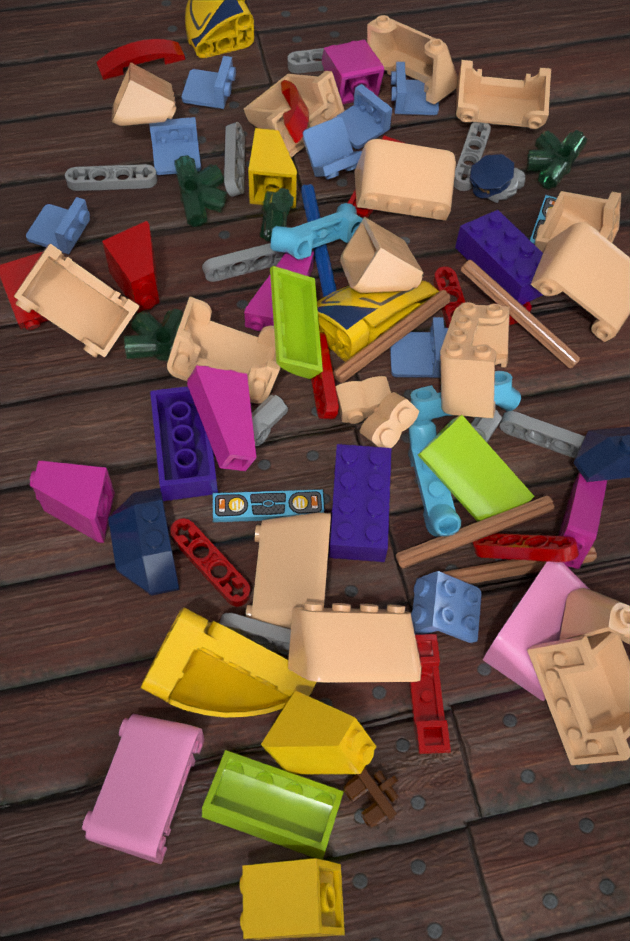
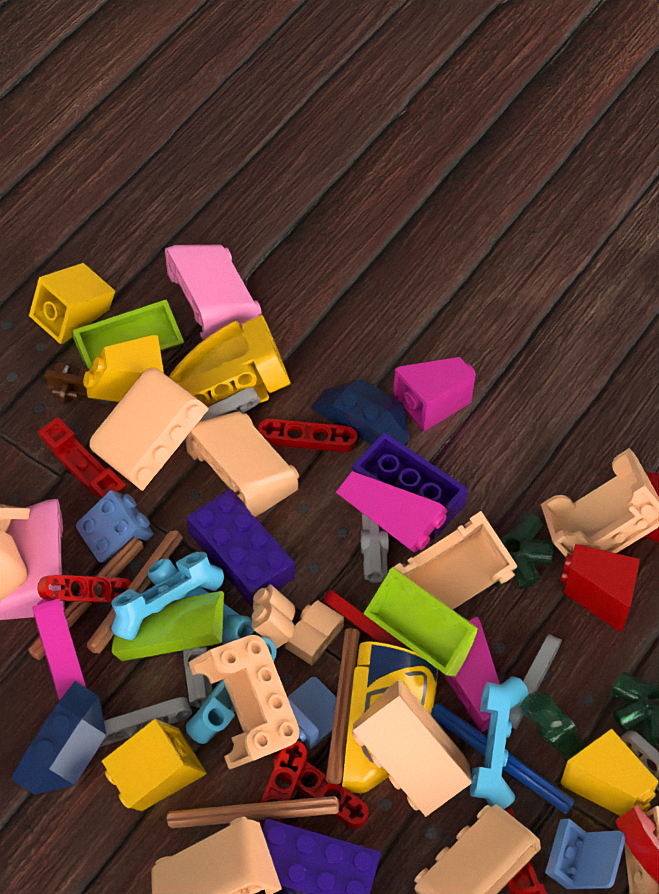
camera: 140 degrees right, 5 degrees down
(265, 505) = (305, 502): tile -> none
(463, 492) = (133, 607): none -> medium azure plate
(563, 394) = (152, 765): none -> yellow slope

